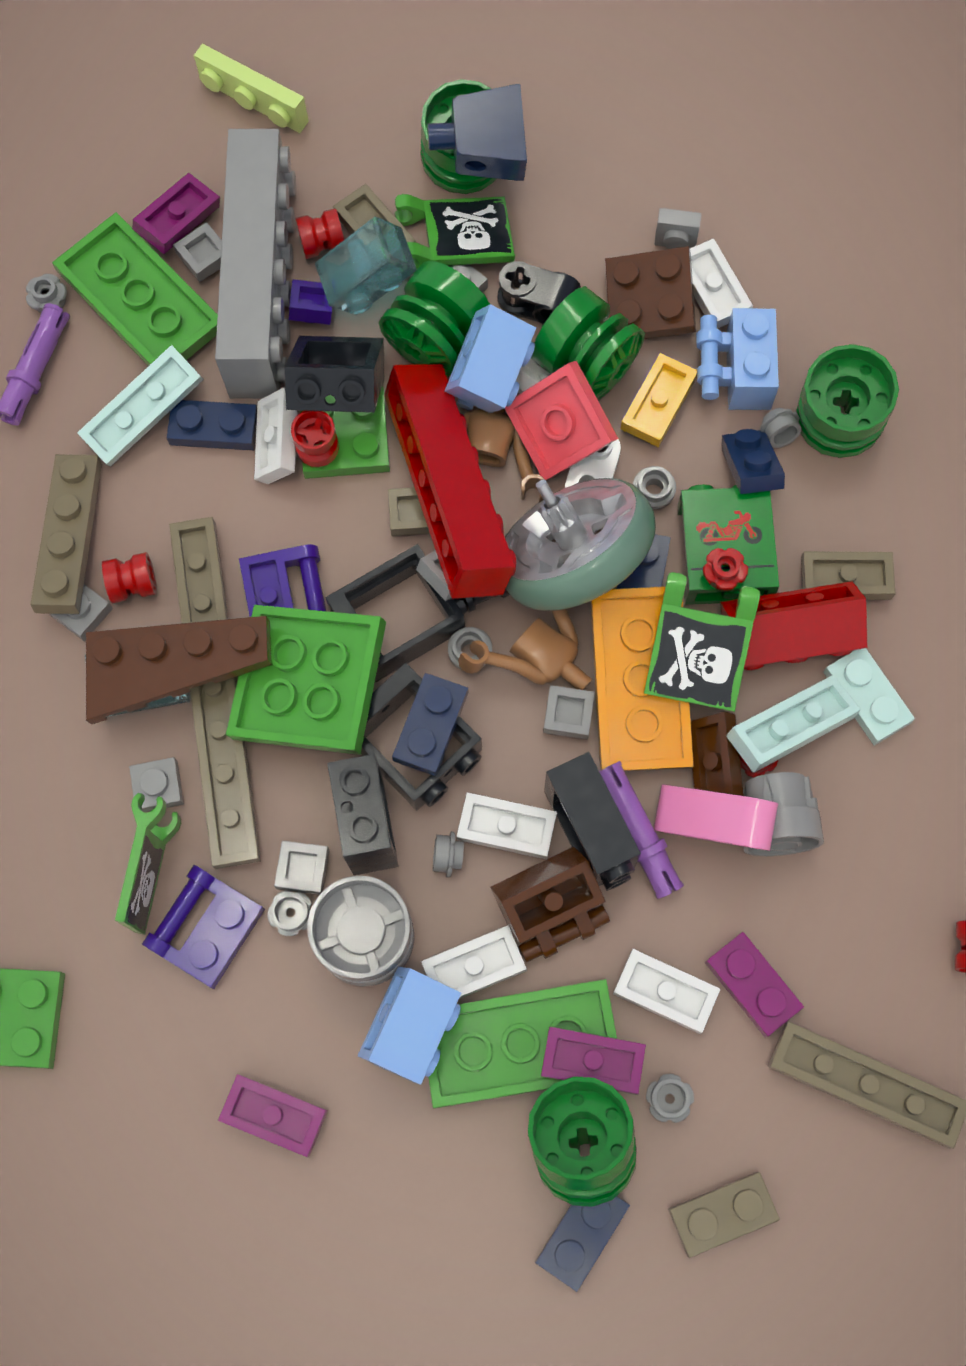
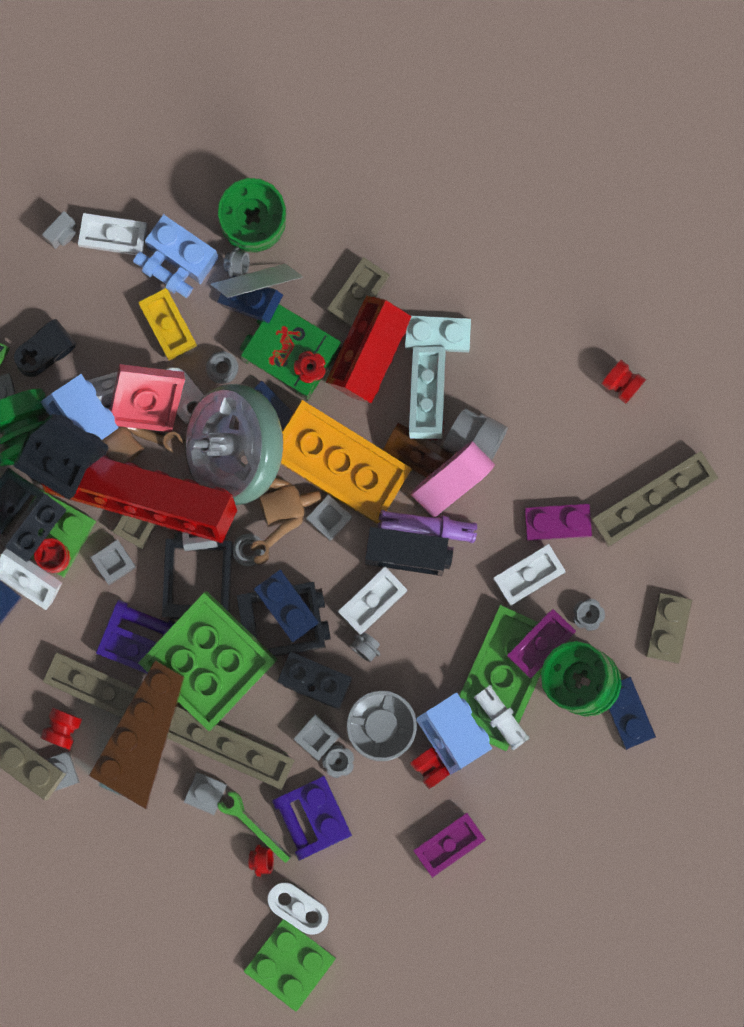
camera: 60 degrees left, 10 degrees up
(82, 982) = (297, 909): none -> white plate
(108, 899) = (261, 860): none -> red plate
(351, 1026) = (424, 764): none -> red wheel
(355, 513) = (113, 562): none -> light grey plate
(427, 355) = (59, 454): none -> black bracket
(469, 1072) = (501, 717): none -> white pin
(477, 963) = (441, 672): white plate -> none
(548, 896) = (436, 606): reddish brown brick -> none
(584, 334) = (105, 344): green wheel -> none
(653, 291) = (93, 279): reddish brown plate -> none
(698, 652) = (350, 419): flag -> none
(777, 452) = (256, 280): none -> white sticker

